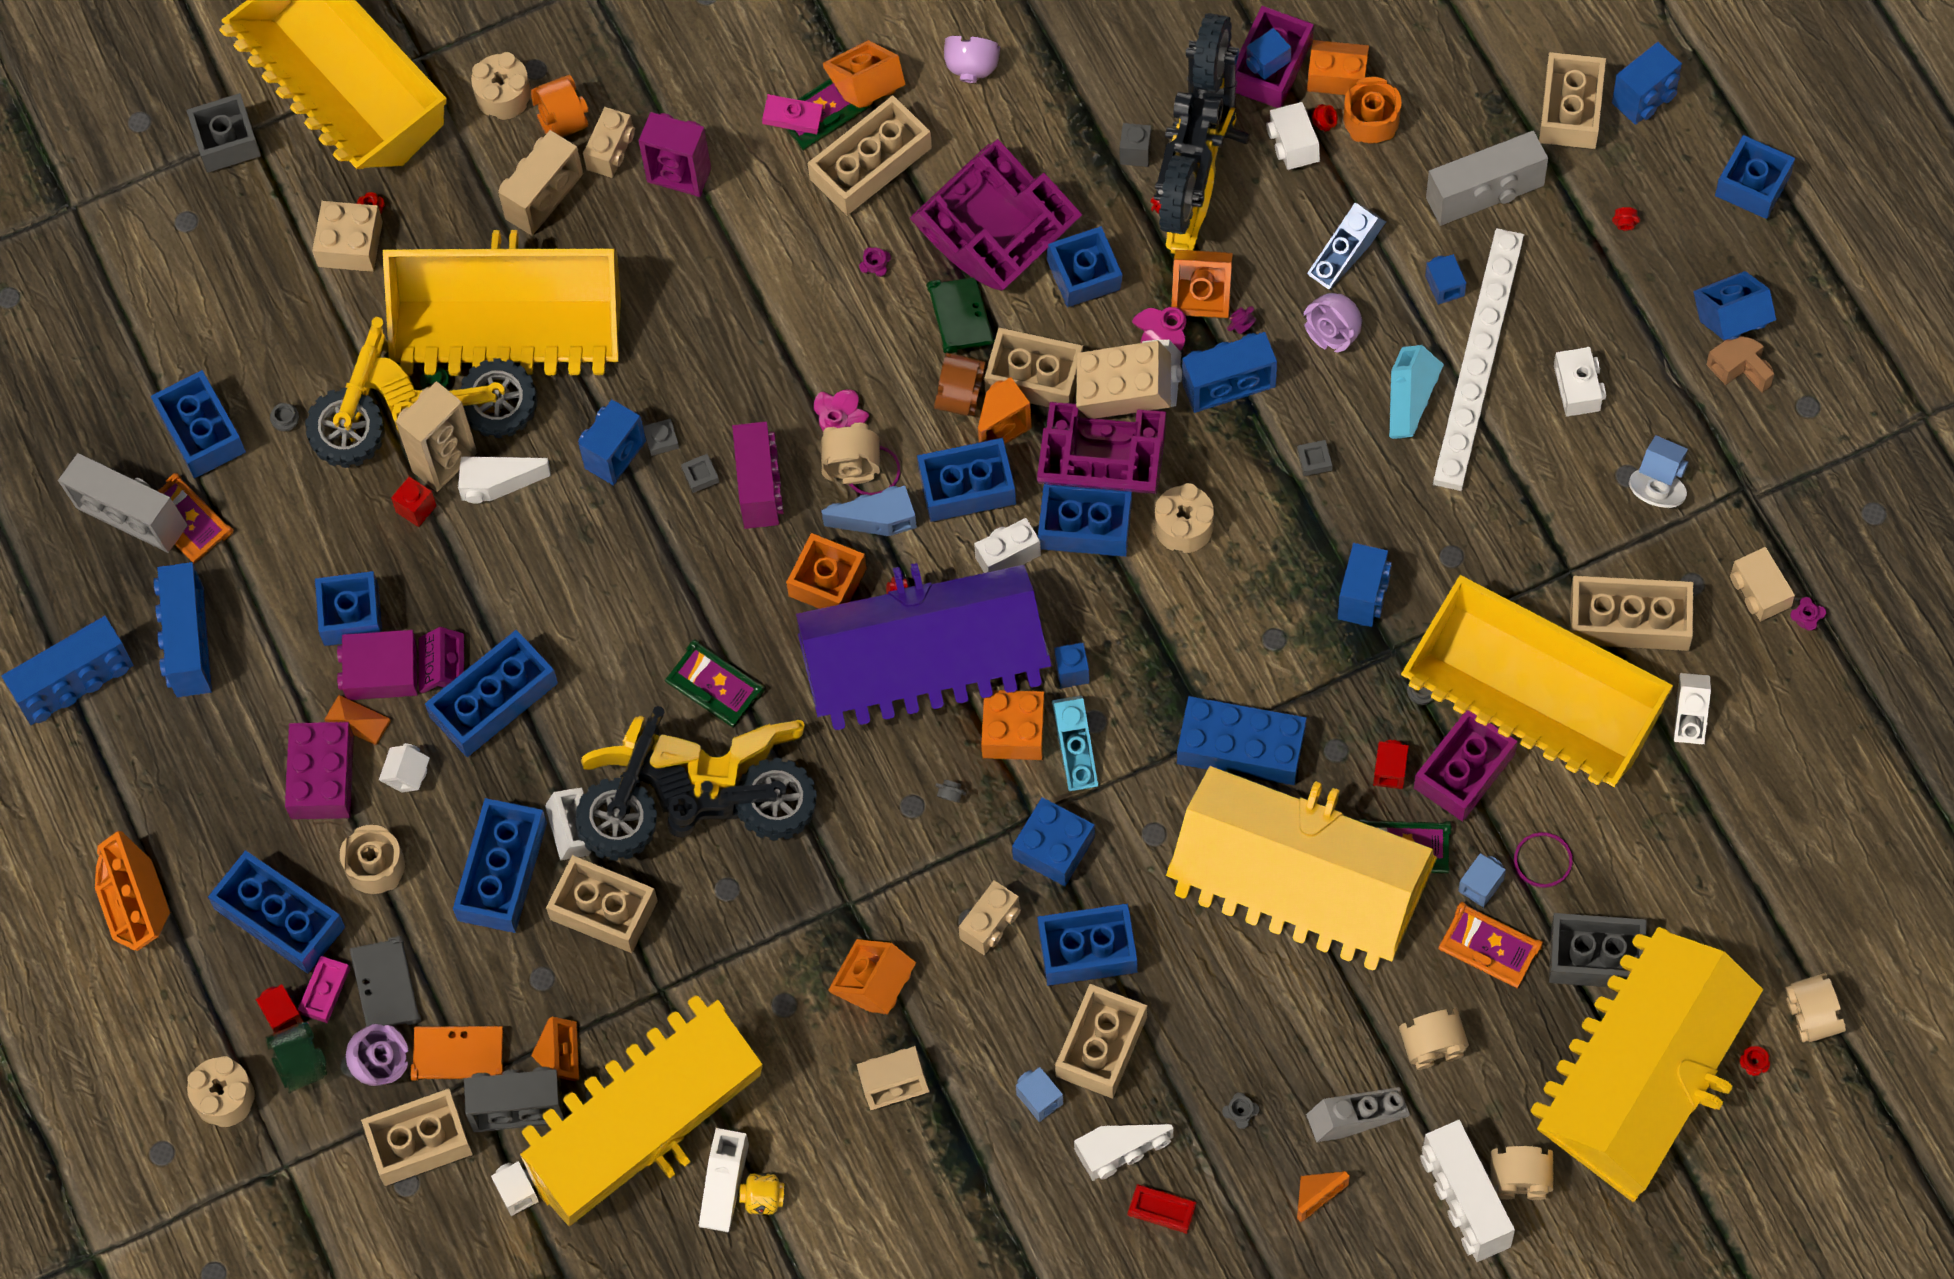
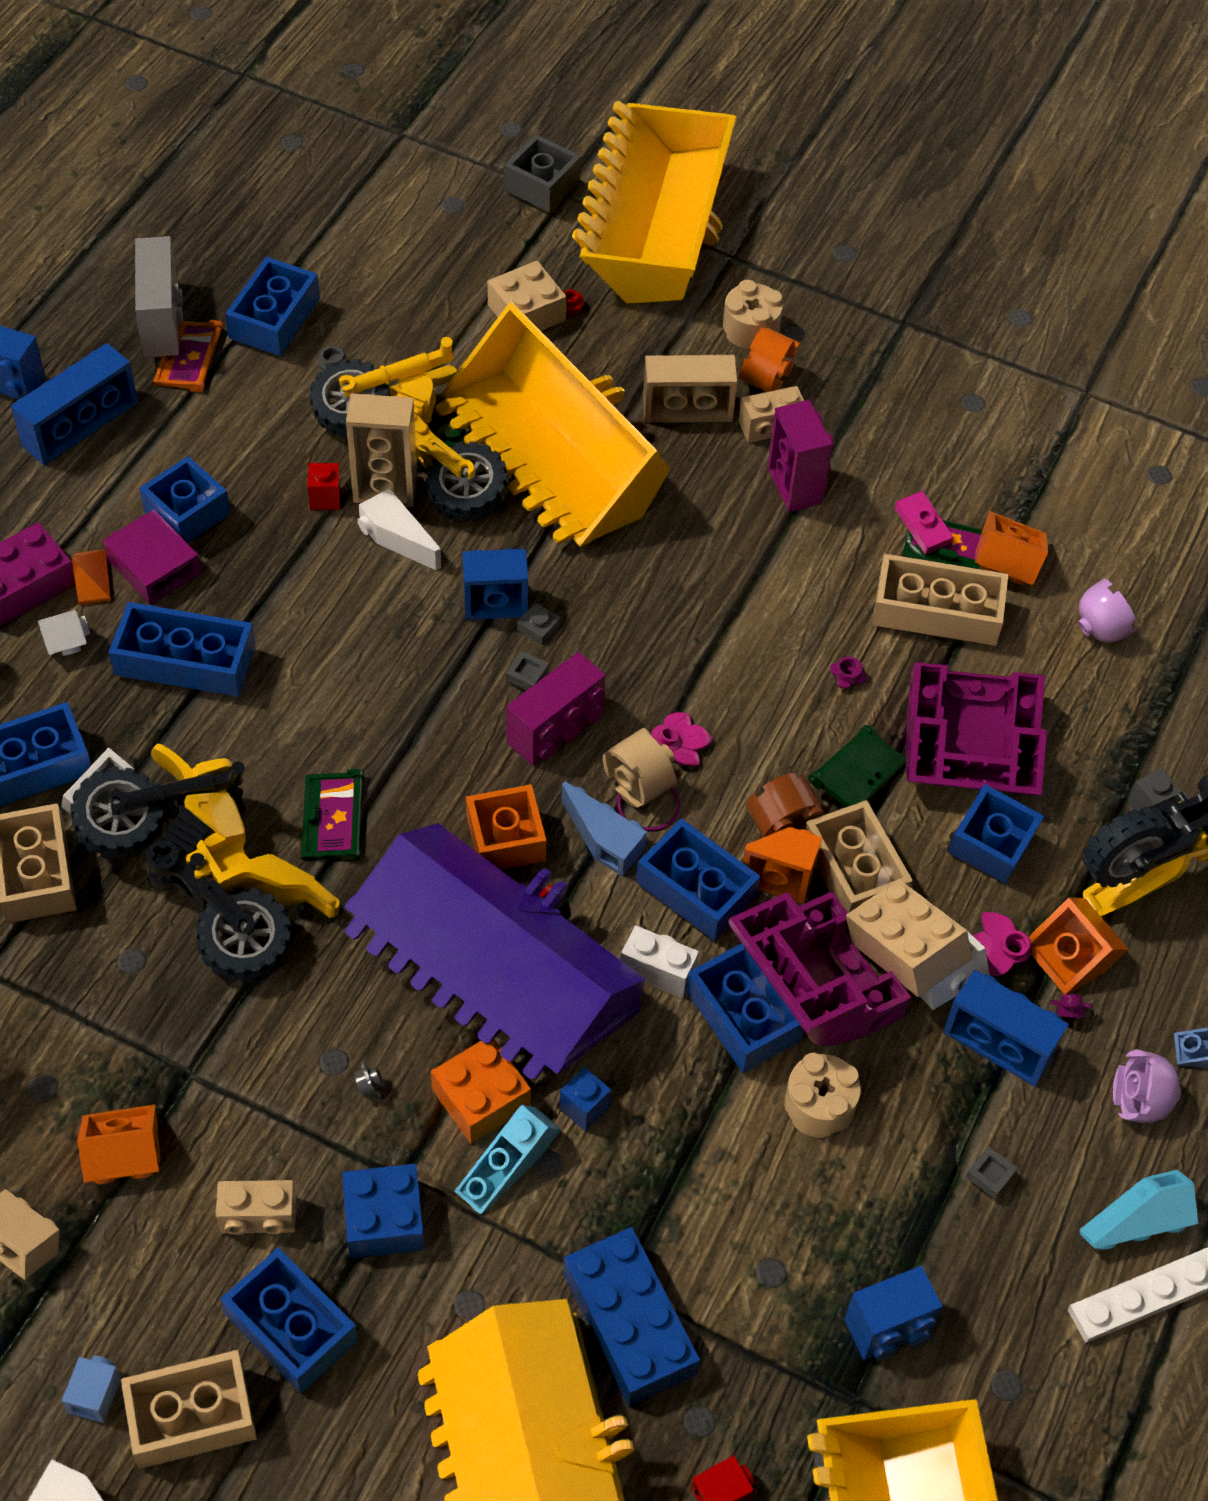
camera: 45 degrees right, 10 degrees down
(440, 658) = (197, 596): magenta panel -> none

